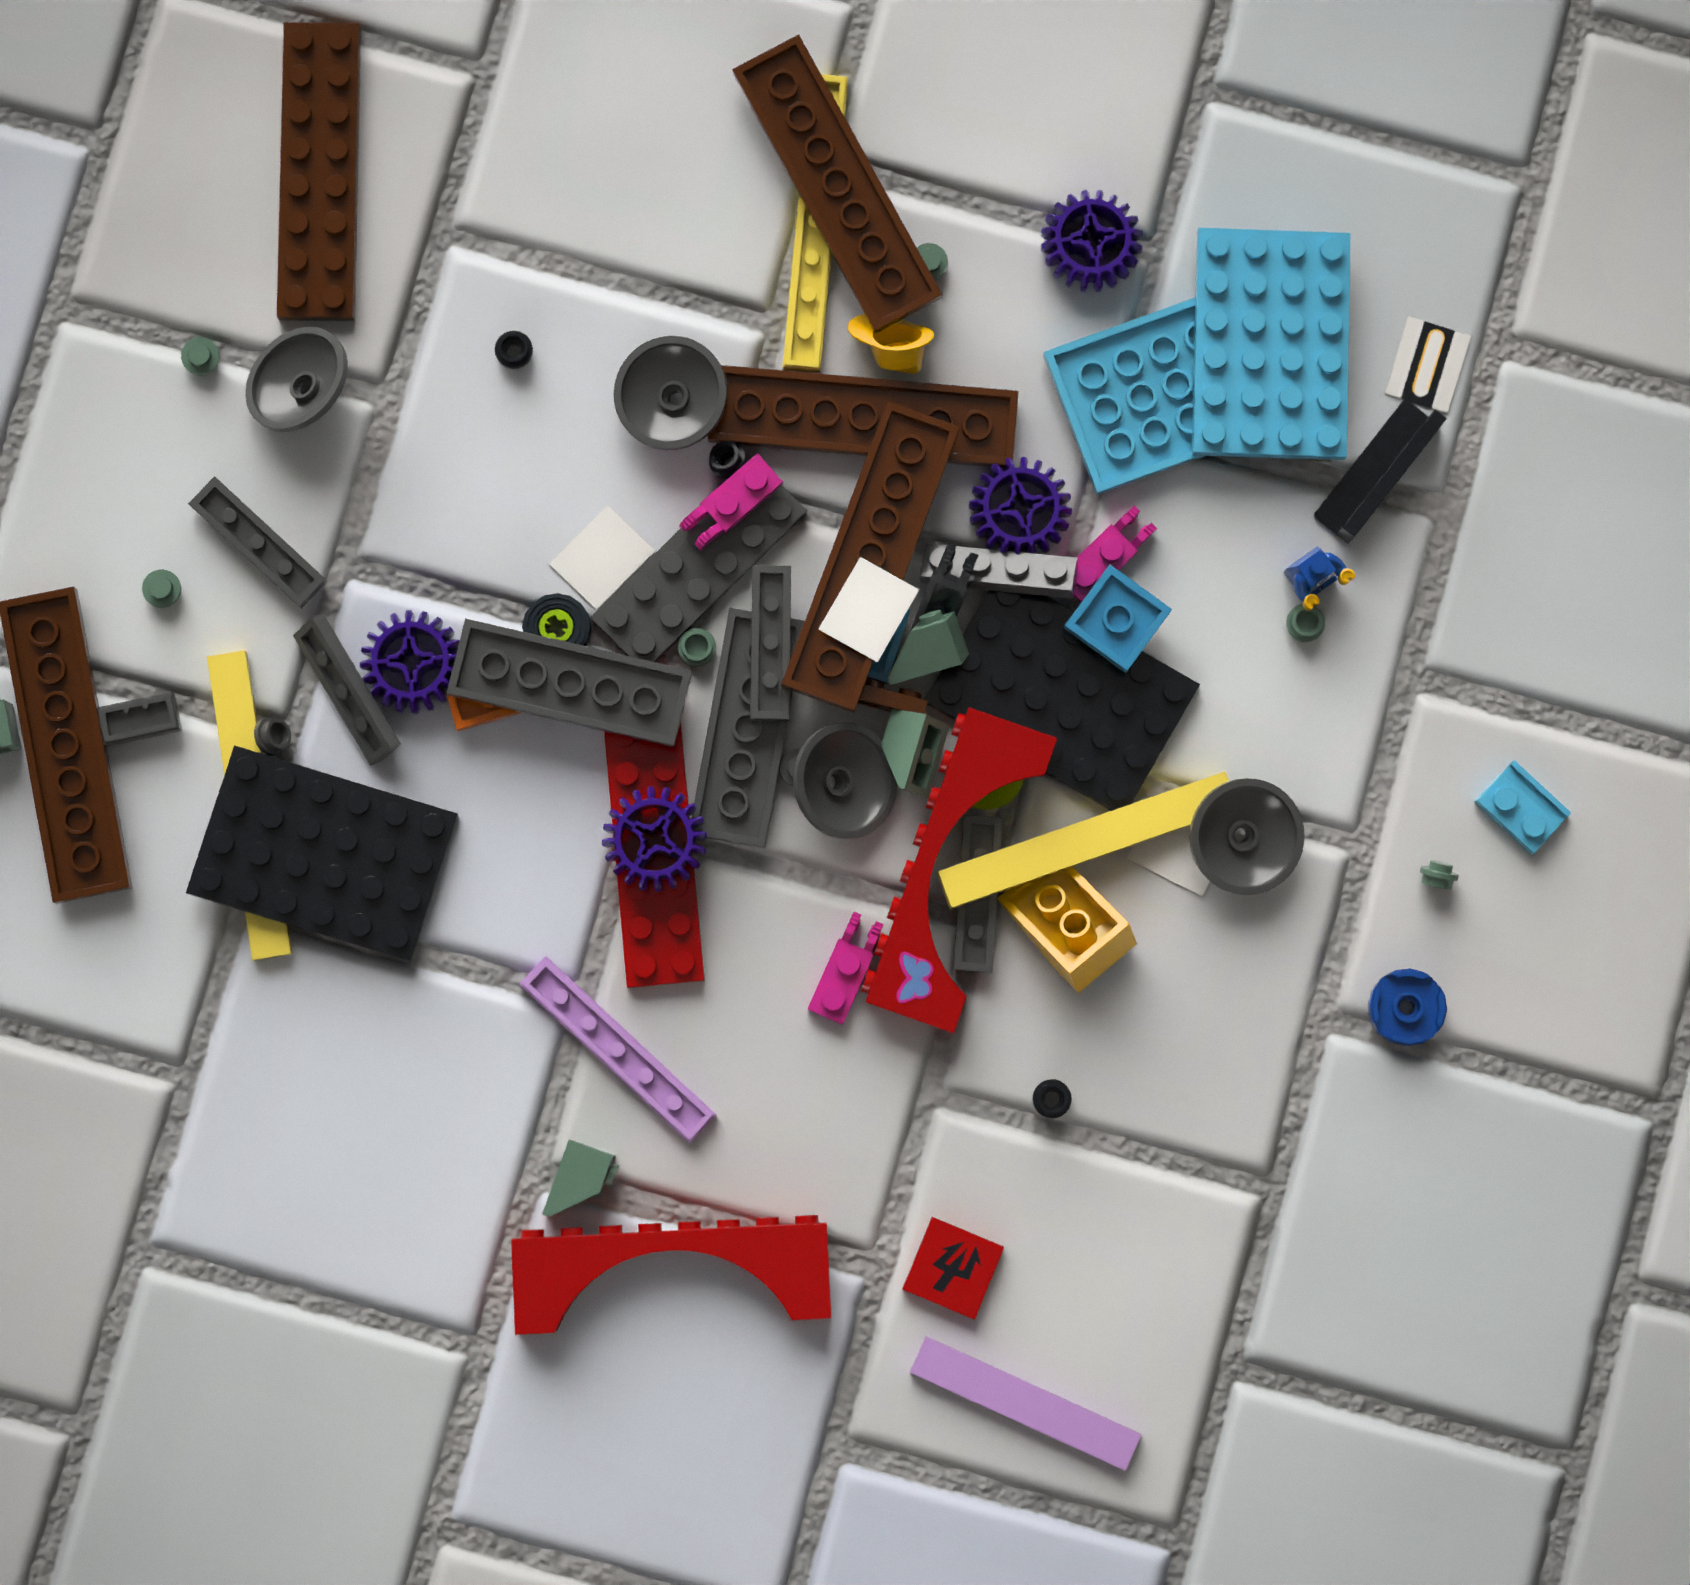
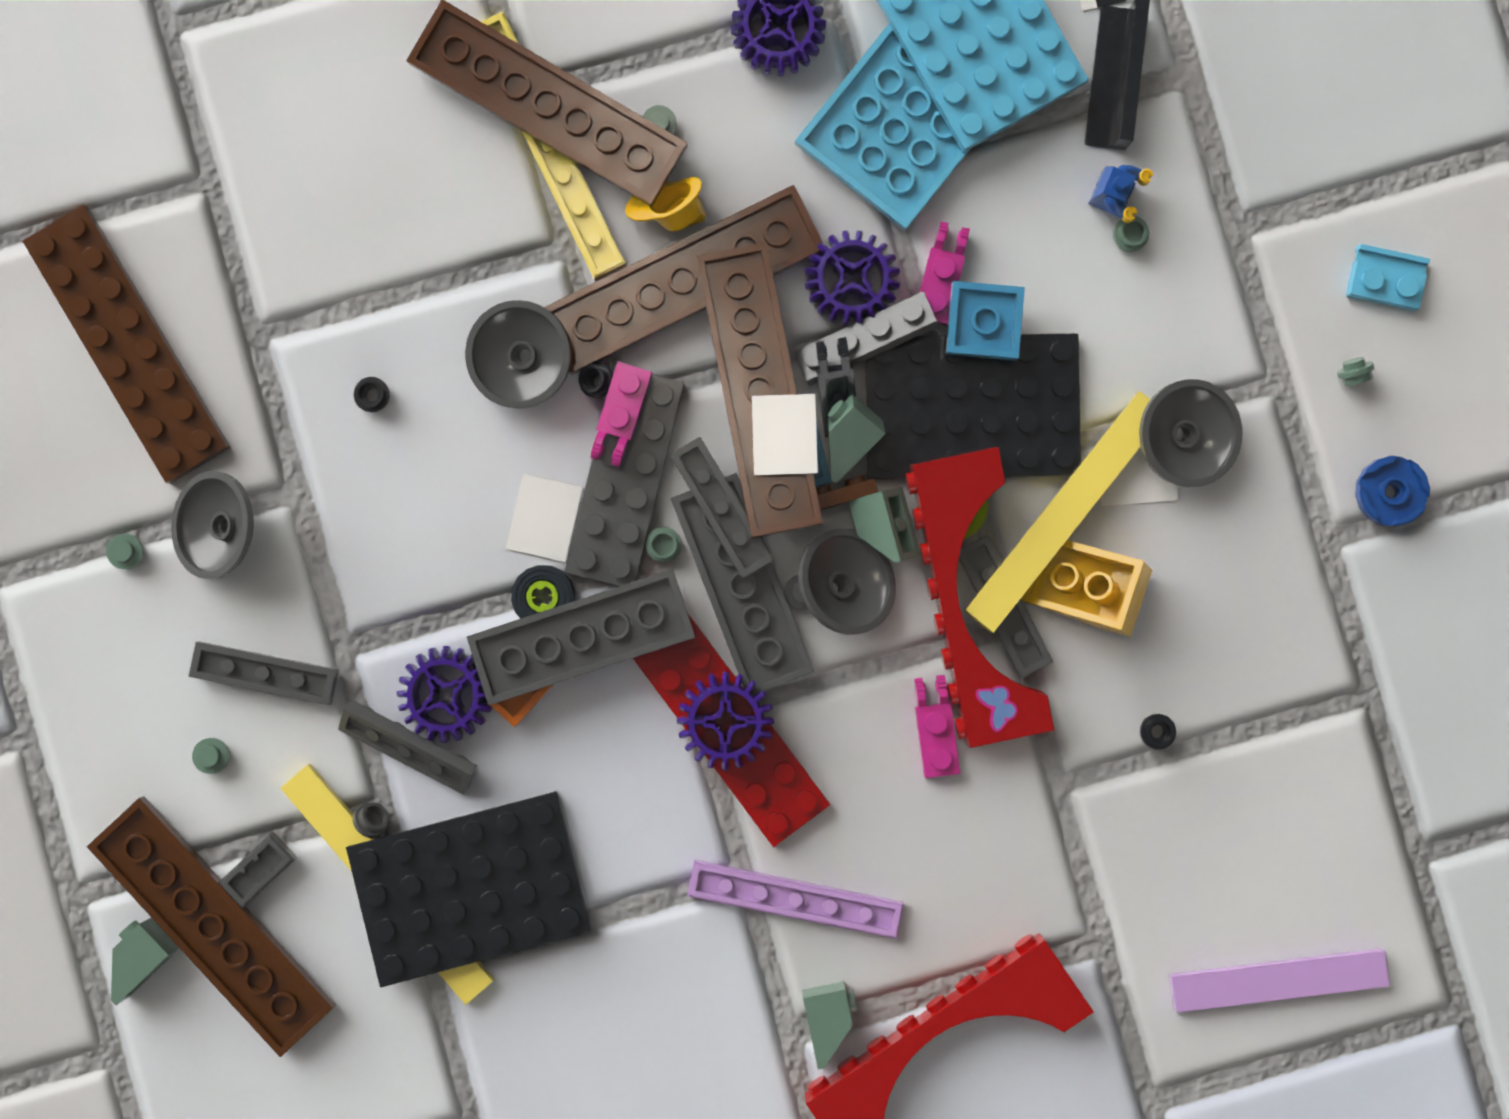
camera: 25 degrees left, 5 degrees up
(953, 1268) = (1160, 910): red tile -> none

